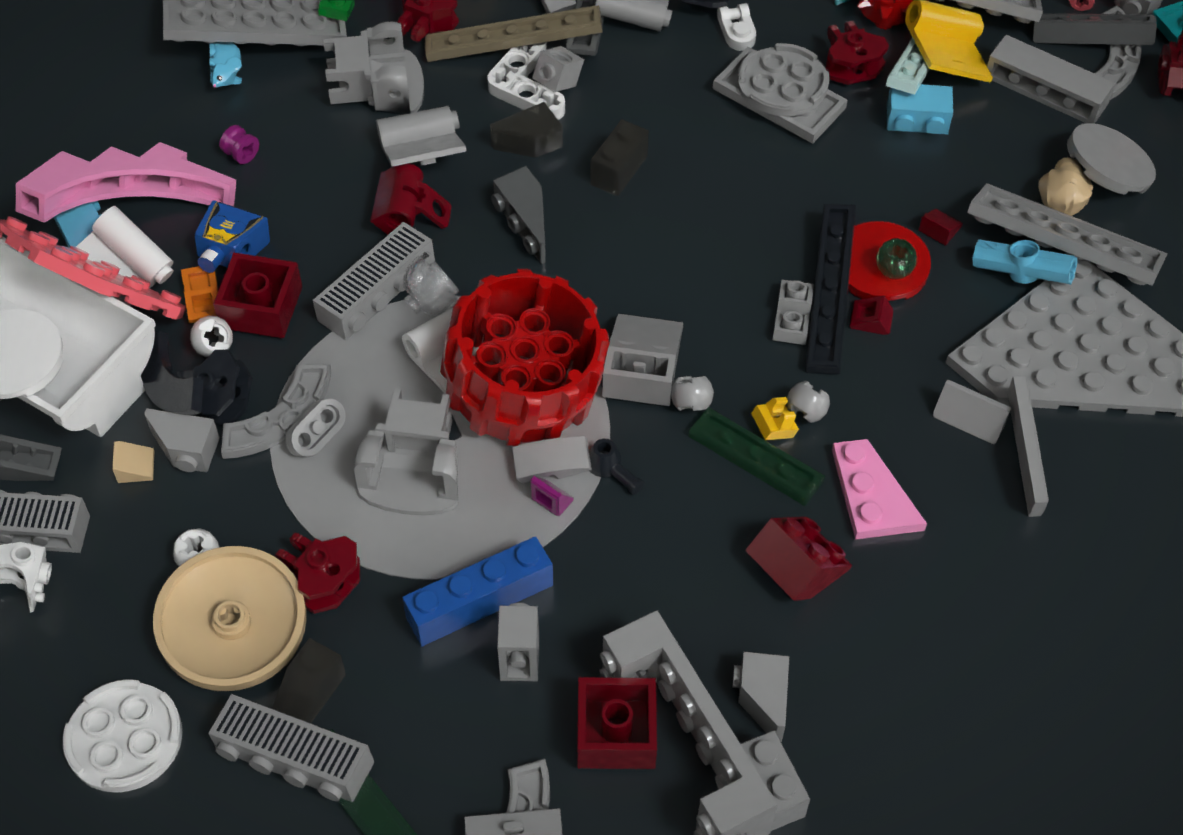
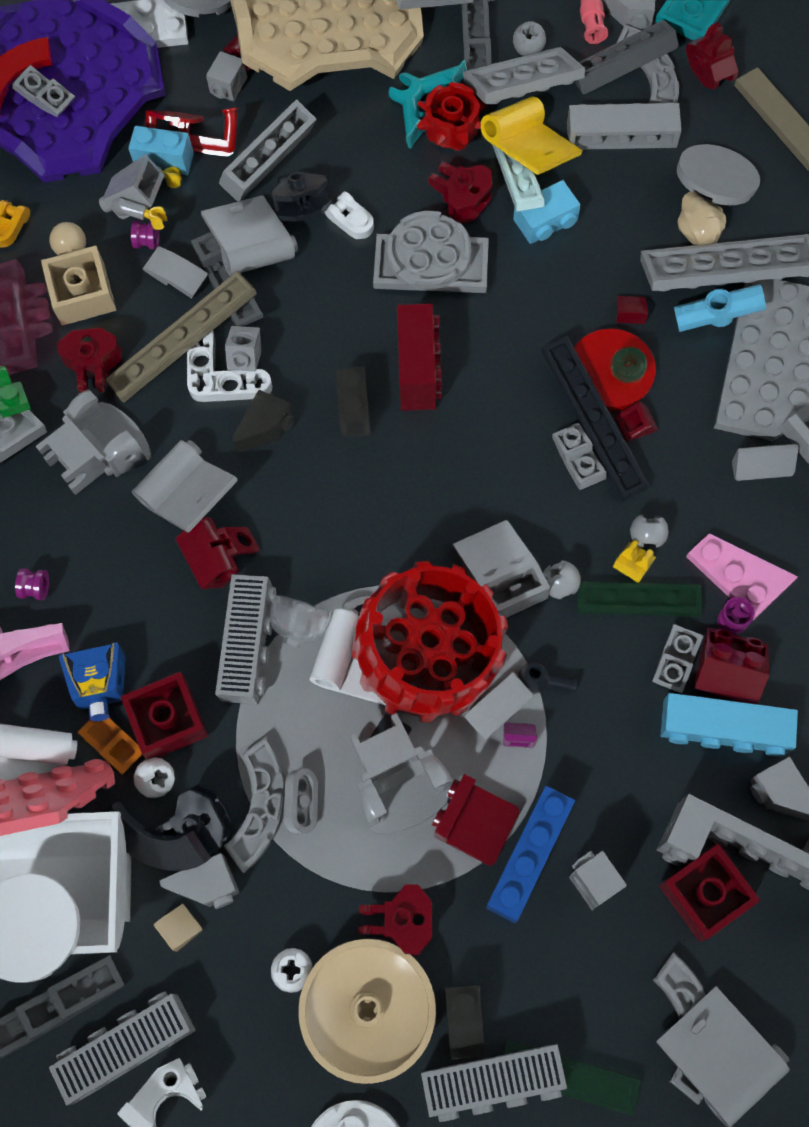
camera: 30 degrees left, 15 degrees up
(450, 530) = (475, 821): none -> dark red bracket
(522, 203) = (308, 492): dark grey slope -> none
(702, 150) = (418, 357): none -> dark red brick
(743, 525) = (677, 658): none -> light grey slope
(755, 602) = (729, 724): none -> medium azure brick
(836, 517) = (740, 611): none -> magenta wheel

